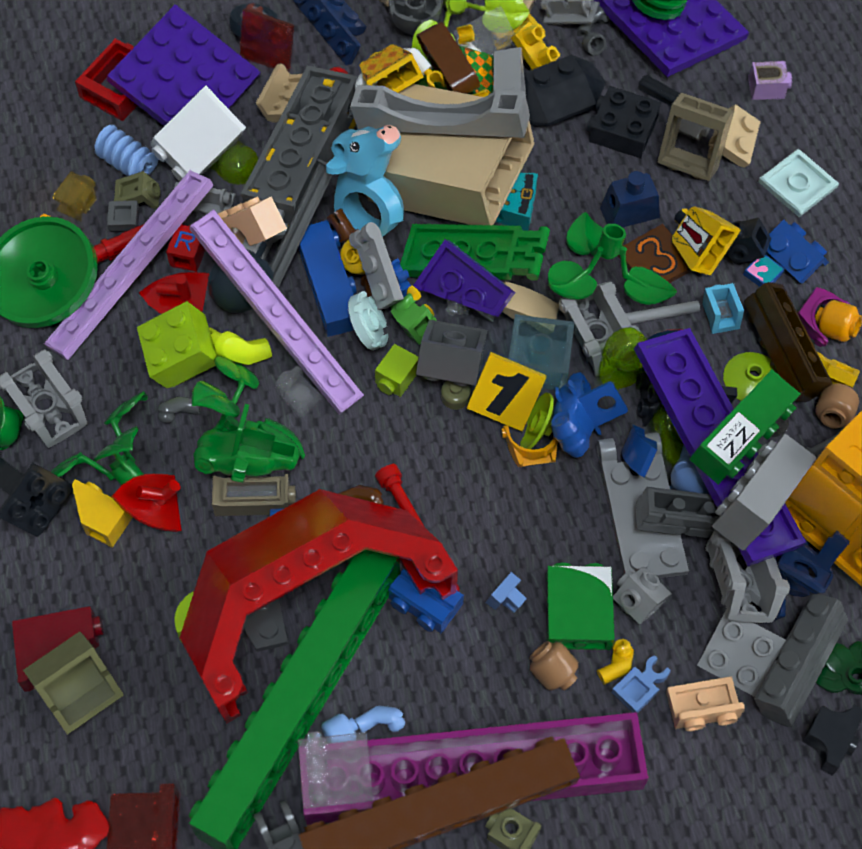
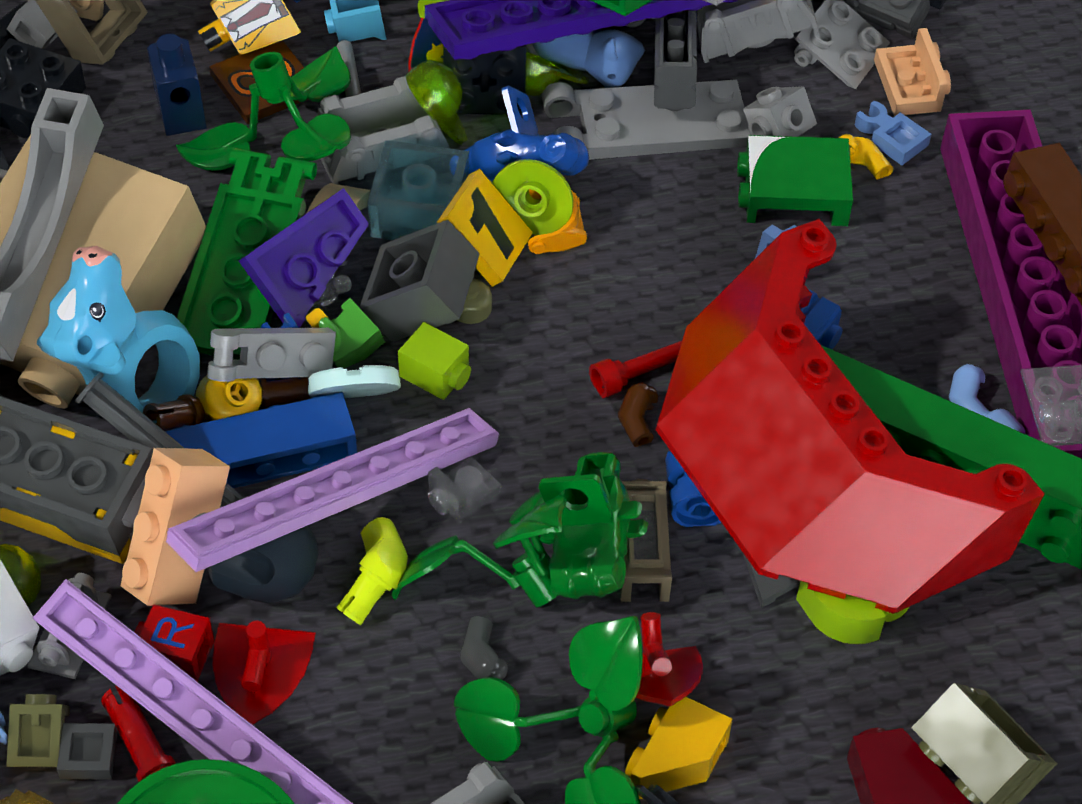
camera: 90 degrees left, 10 degrees down
(177, 345) = (380, 636): lime brick -> none
(554, 666) = (881, 208): medium nougat head -> none
(639, 451) = (583, 95): blue slope -> none

